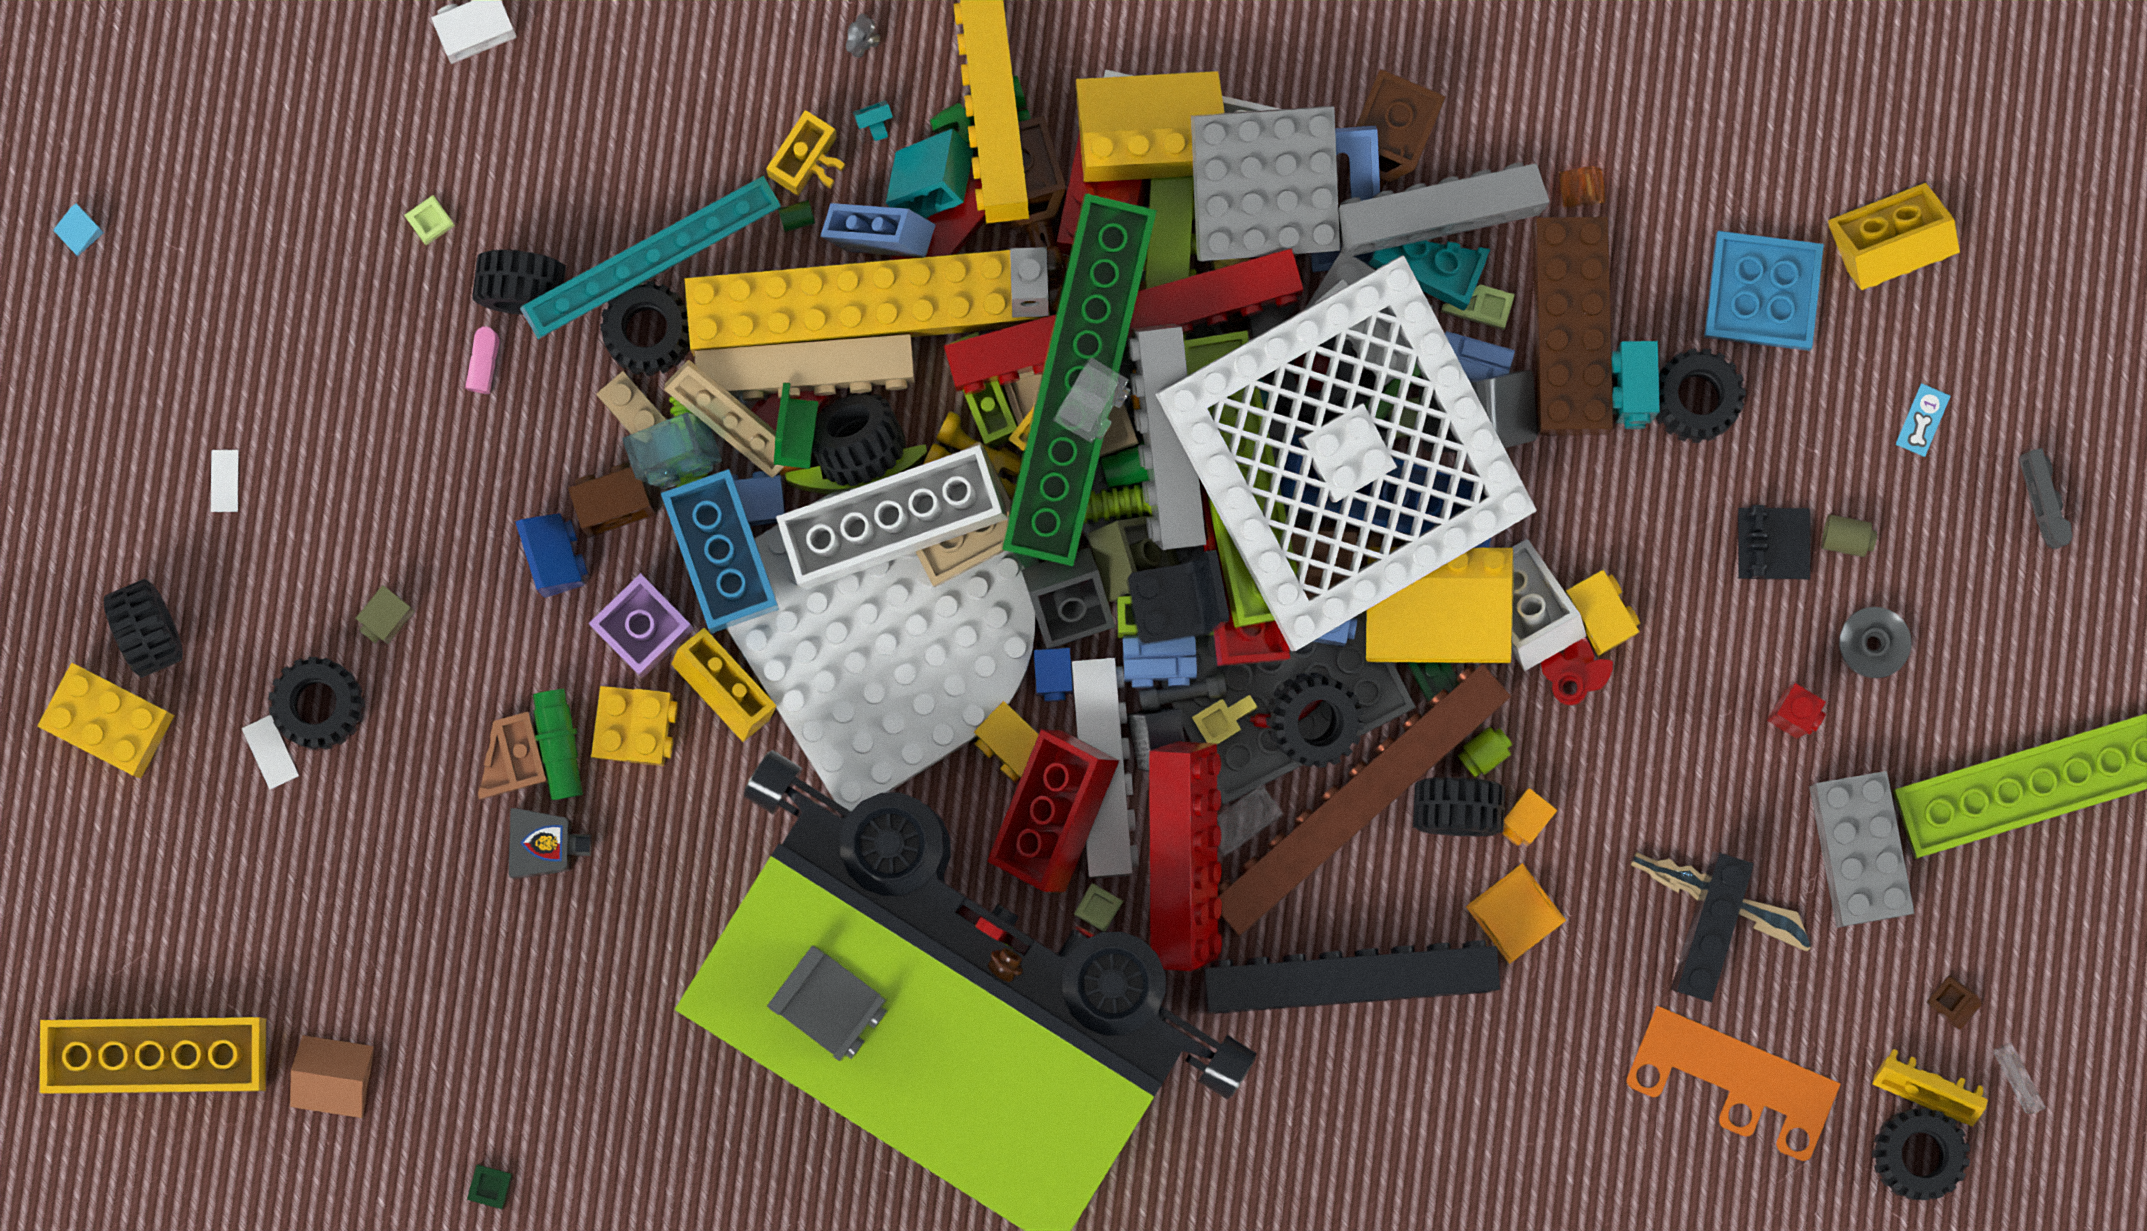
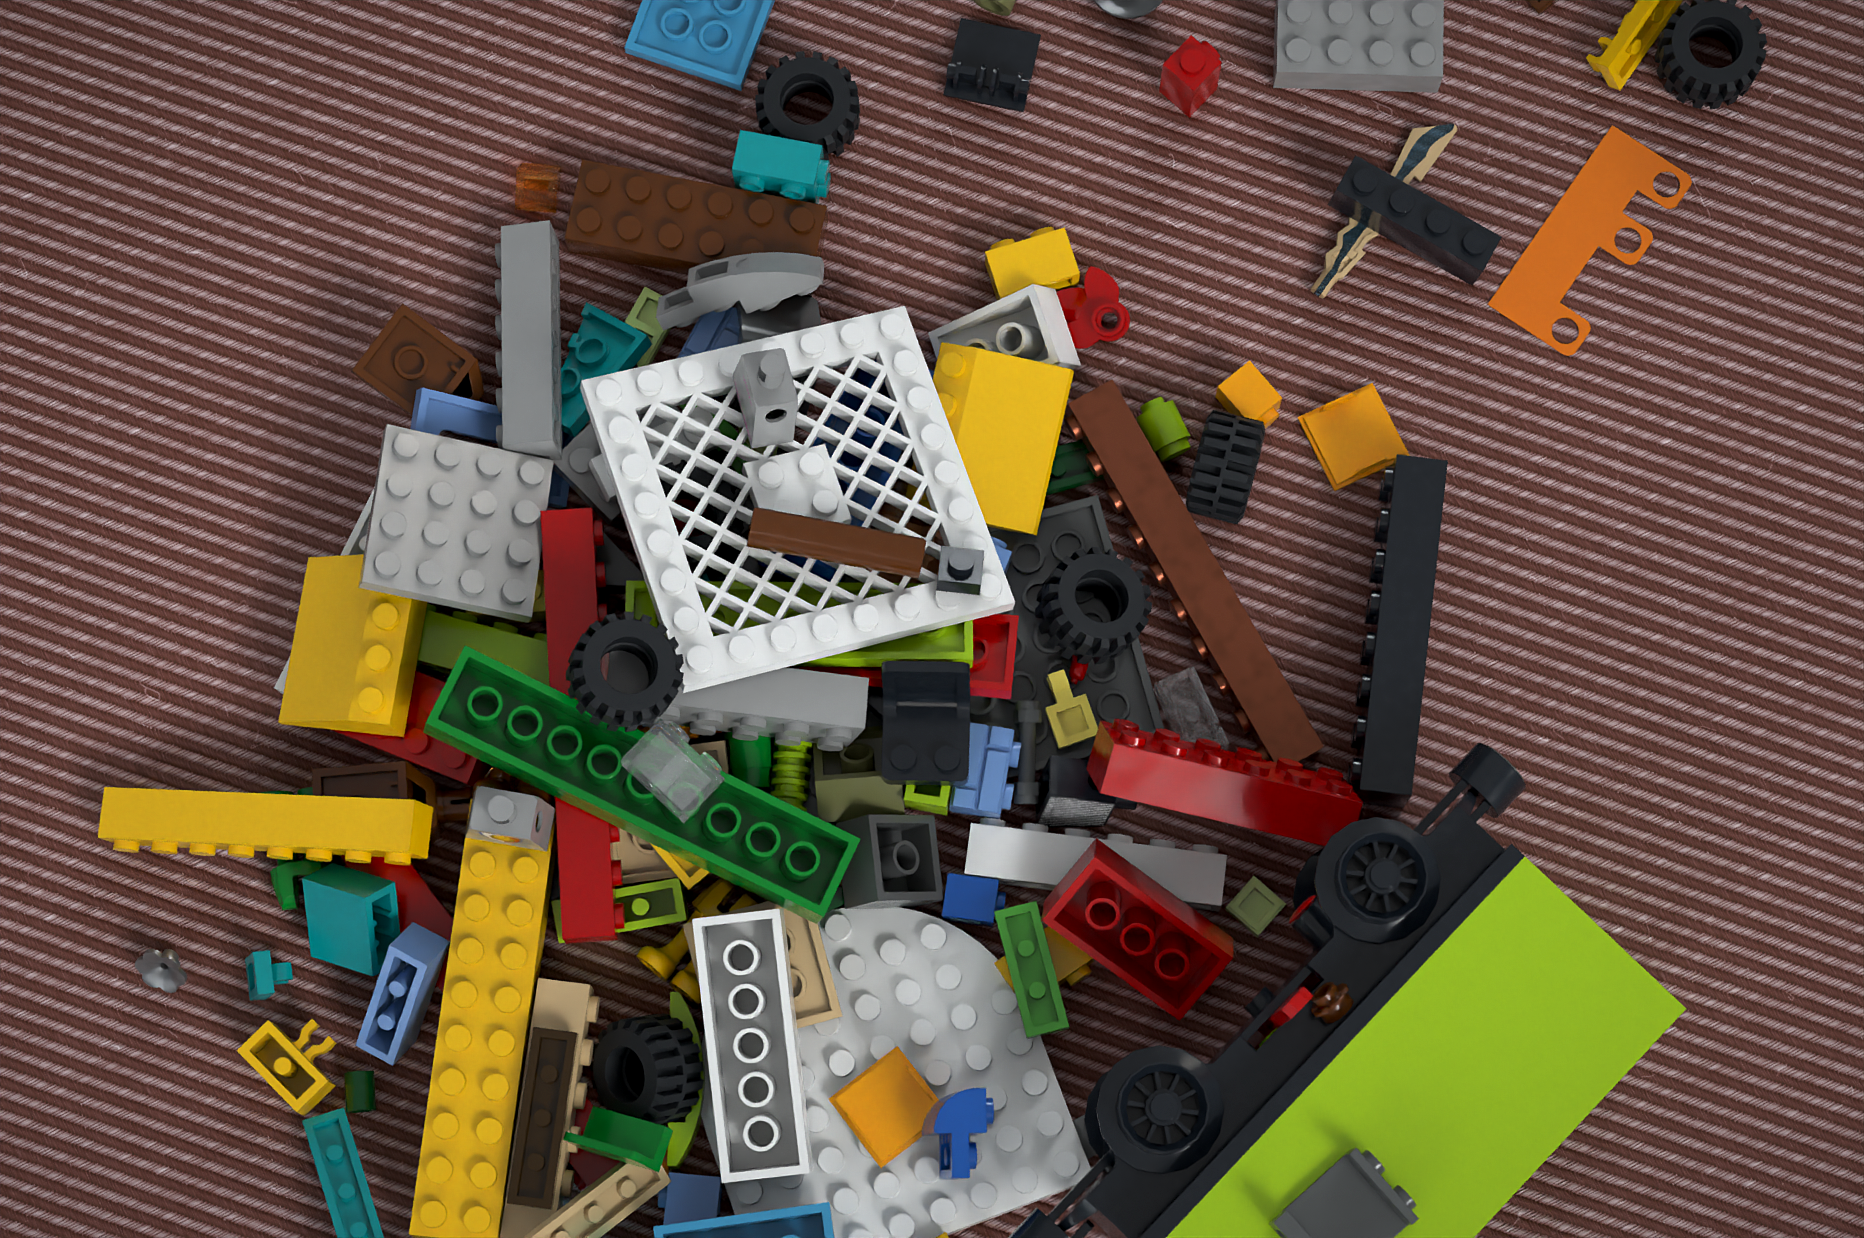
camera: 75 degrees left, 5 degrees down
(796, 362) = (542, 1118): none -> dark brown plate
(864, 690) = (953, 1121): none -> blue brick
(868, 640) = (886, 1106): none -> light orange piece
(1002, 731) = (1031, 970): none -> bright green plate
(1190, 342) = (649, 646): none -> black tyre
(1308, 491) = (836, 542): none -> reddish brown brick
(1310, 599) = (960, 570): none -> plate
(1424, 408) = (763, 386): none -> light grey torso
(1531, 378) = (752, 278): none -> light grey slope

